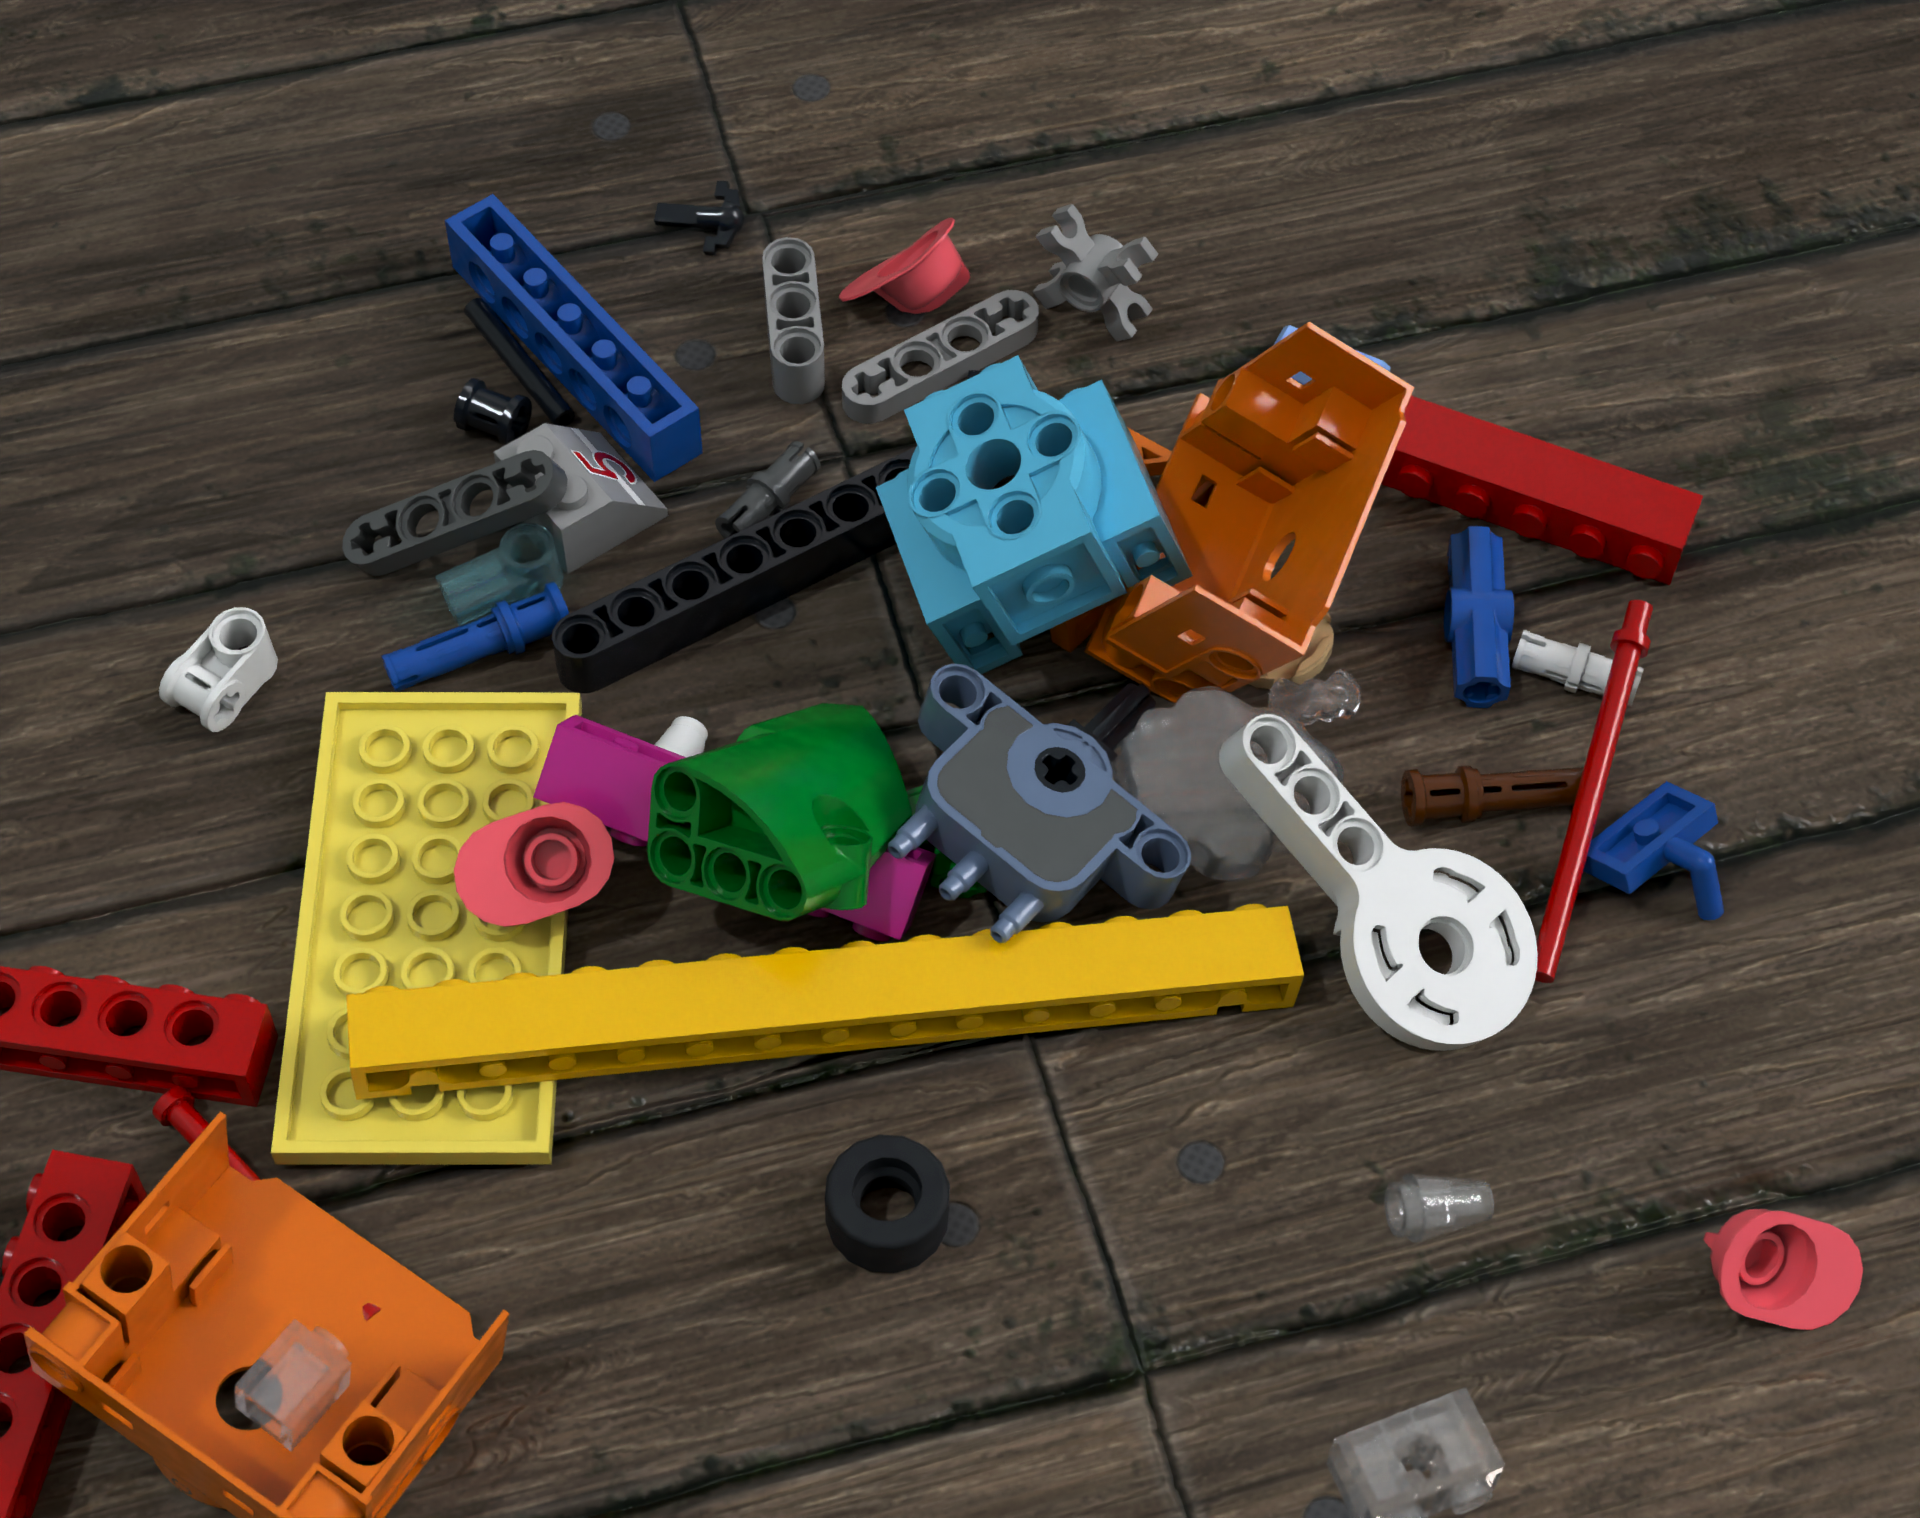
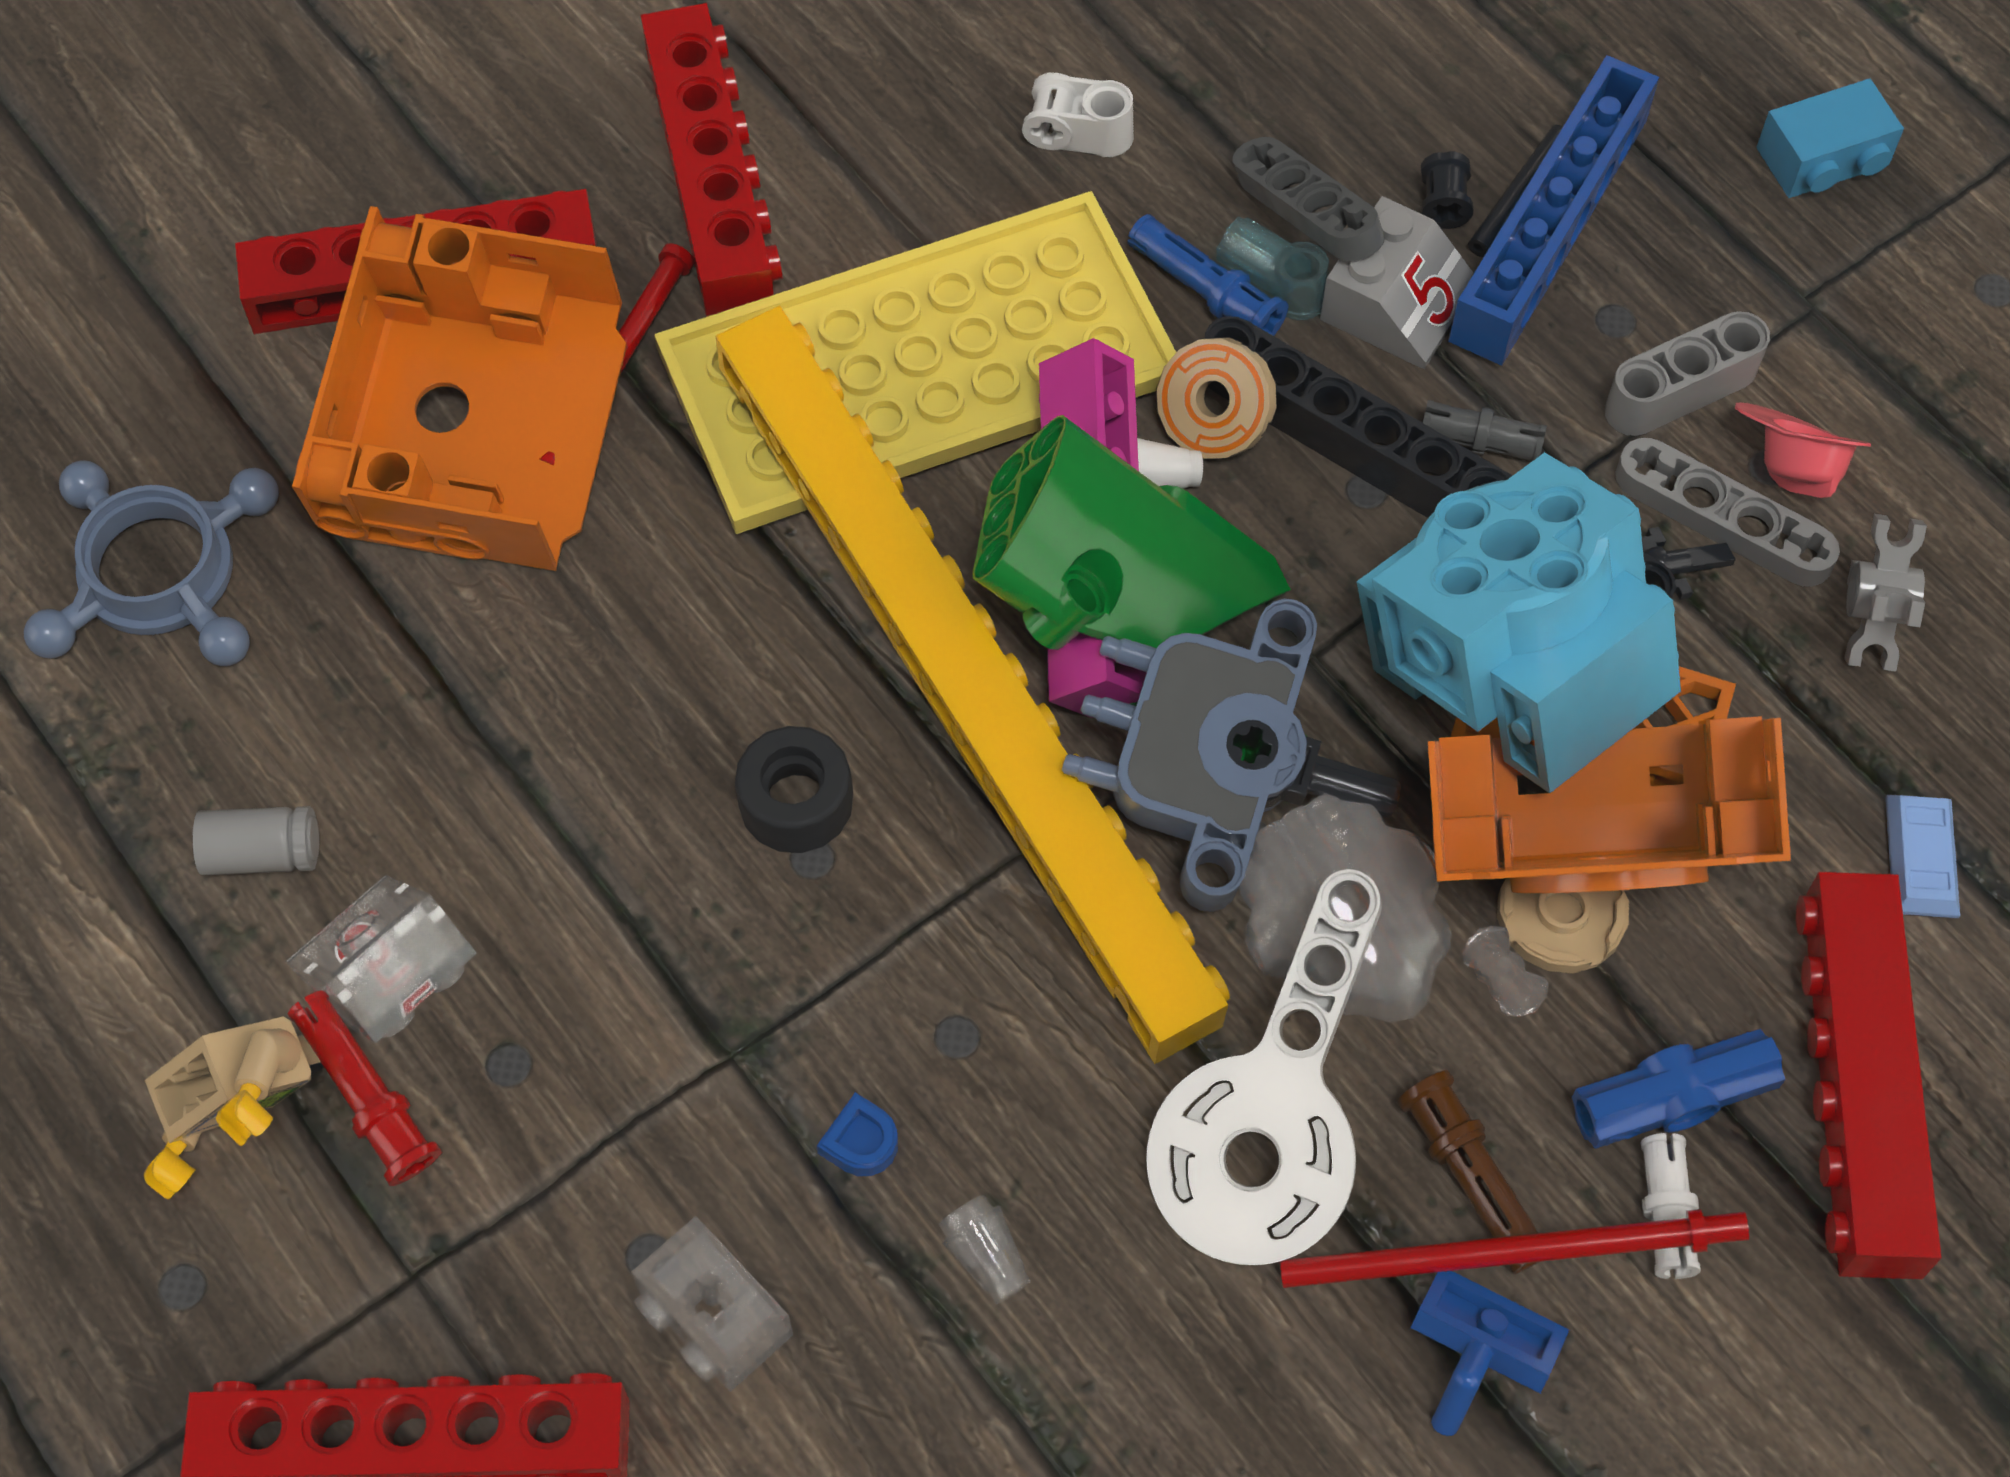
camera: 70 degrees right, 5 degrees up
(294, 1382) = (451, 423): clear brick -> none
(534, 864) = (970, 388): coral piece -> none
(606, 119) = (1829, 138): none -> dark azure brick
(670, 670) = (1183, 404): none -> tan tile
(726, 219) = (1779, 278): black piece -> none
(1279, 1279) = (860, 1139): none -> blue tile

